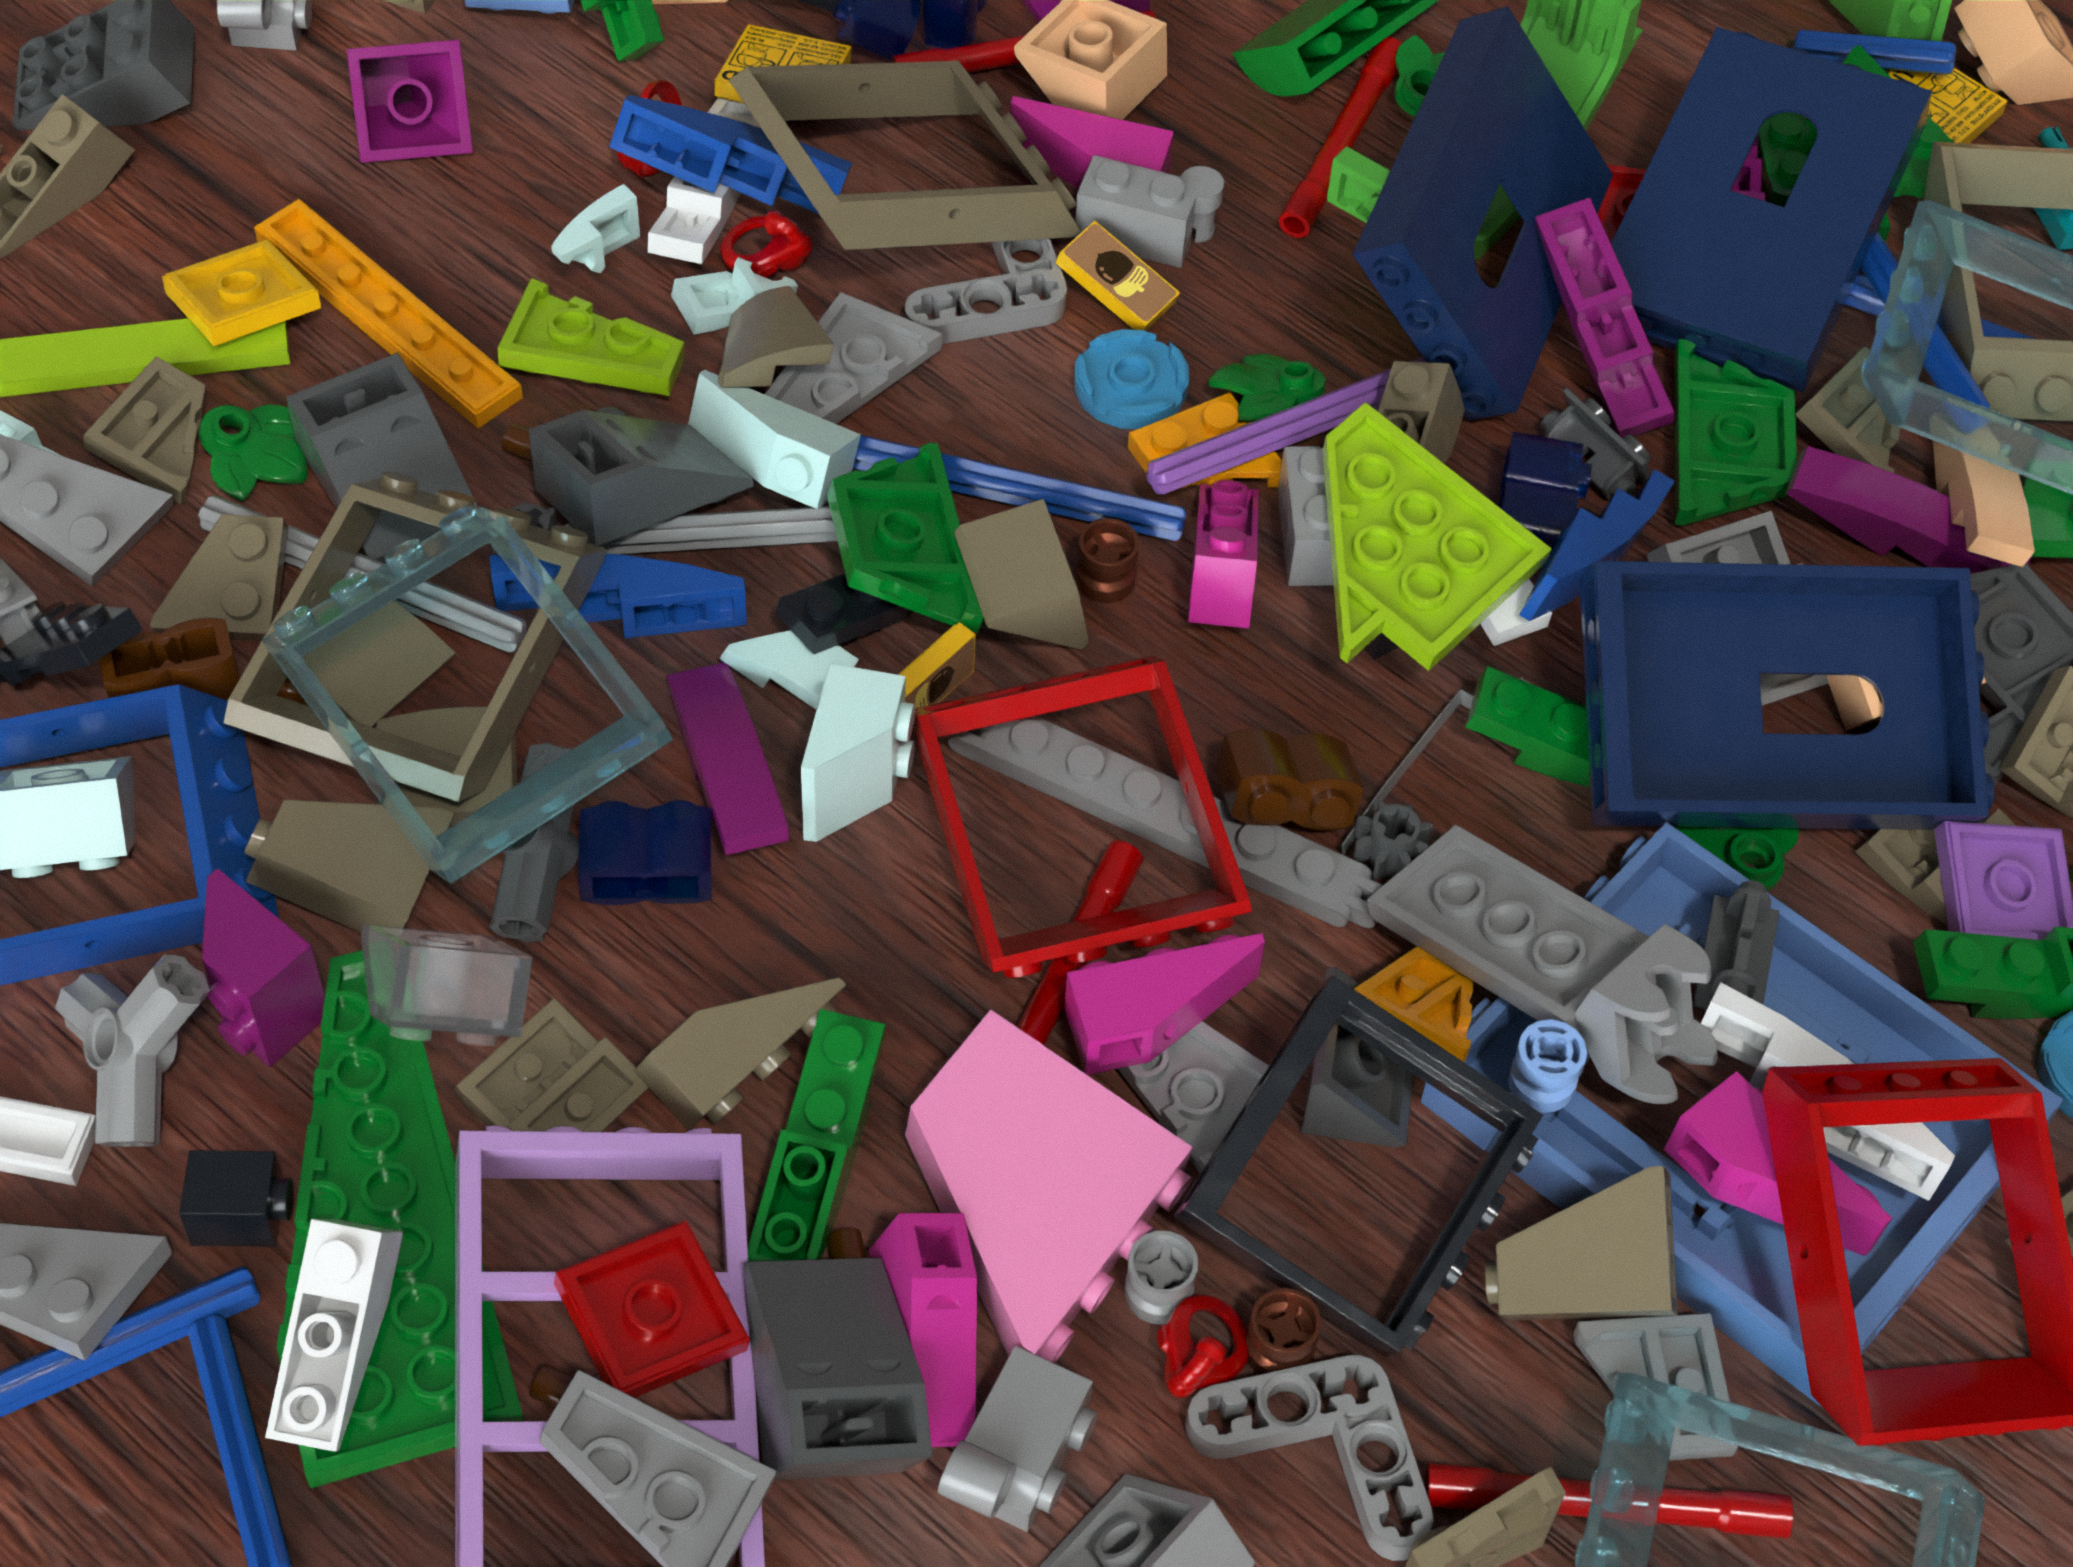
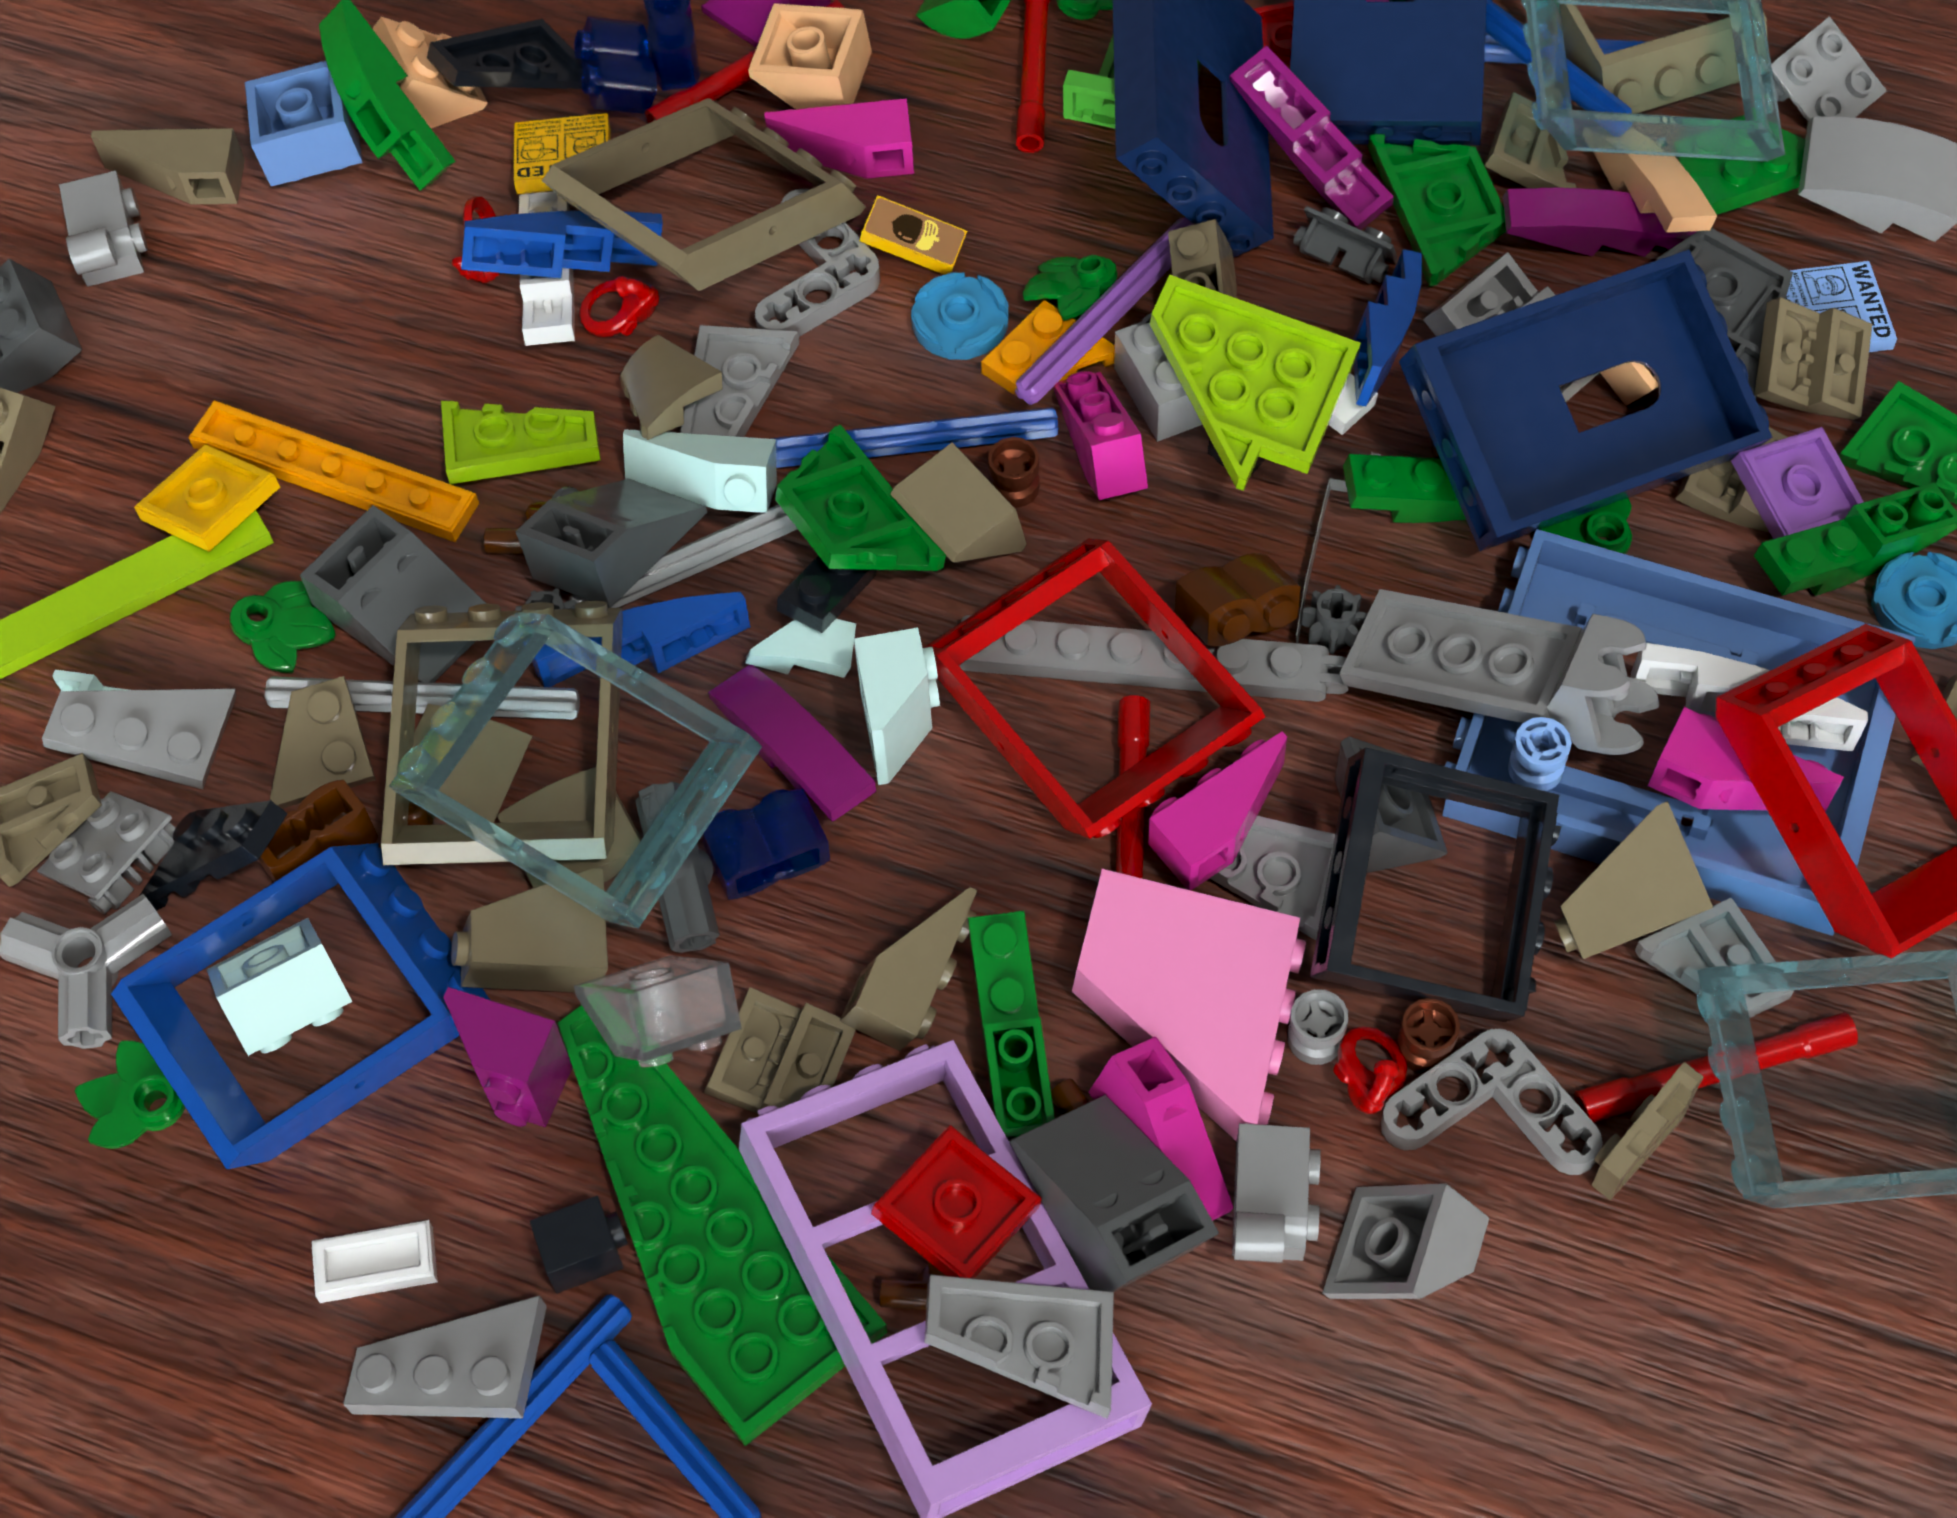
camera: 15 degrees left, 5 degrees up
(131, 1043) = (435, 1150): light grey piece -> none
(153, 428) = (191, 639): dark tan wing -> none
(332, 1330) = (712, 1320): white slope -> none
(409, 101) = (268, 284): magenta slope -> none
(599, 229) = (479, 340): light aqua slope -> none
(711, 298) = (599, 364): light aqua slope -> none
(940, 667) = (926, 604): tile -> none
(1150, 208) = (913, 169): light grey hinge -> none
(1426, 998) = (1424, 734): light orange wing -> none
(1543, 484) = (1320, 291): clear blue brick -> none
(1739, 943) = (1634, 597): dark grey hinge -> none

